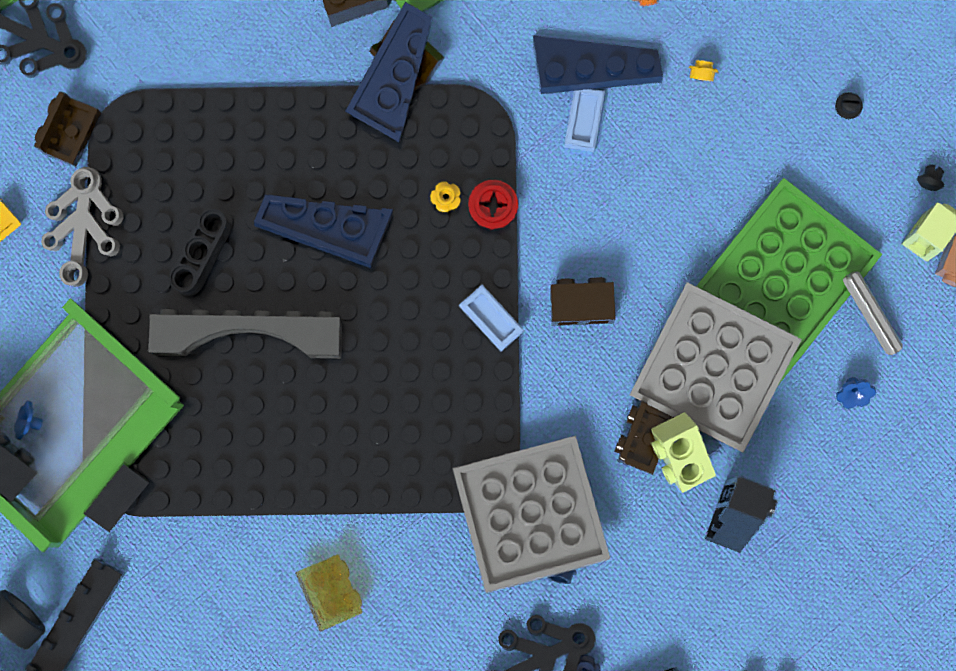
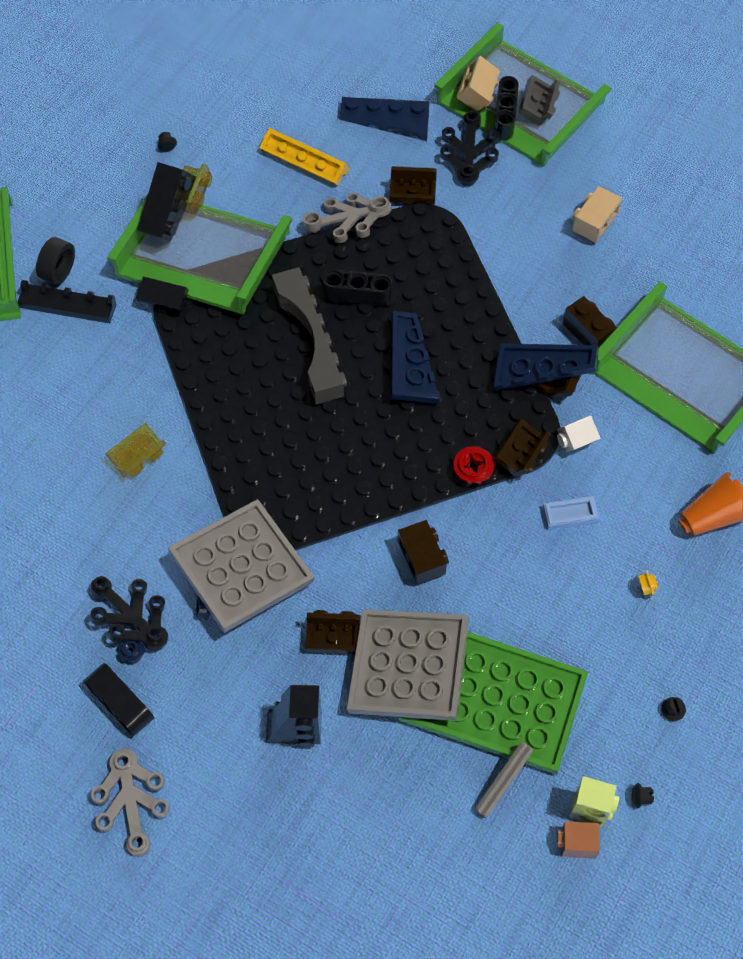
camera: 65 degrees right, 20 degrees down
(26, 420) = (197, 225): blue plant -> none
(442, 204) = (465, 437): yellow plate -> none
(491, 318) = (385, 493): light blue tile -> none
(494, 70) = (578, 434): none -> white brick
(494, 141) = (521, 448): none -> dark brown bracket
(584, 65) = (613, 499): dark blue wing -> none
(687, 450) = (333, 666): yellowish green brick -> none
(855, 393) = (431, 789): blue plant -> none

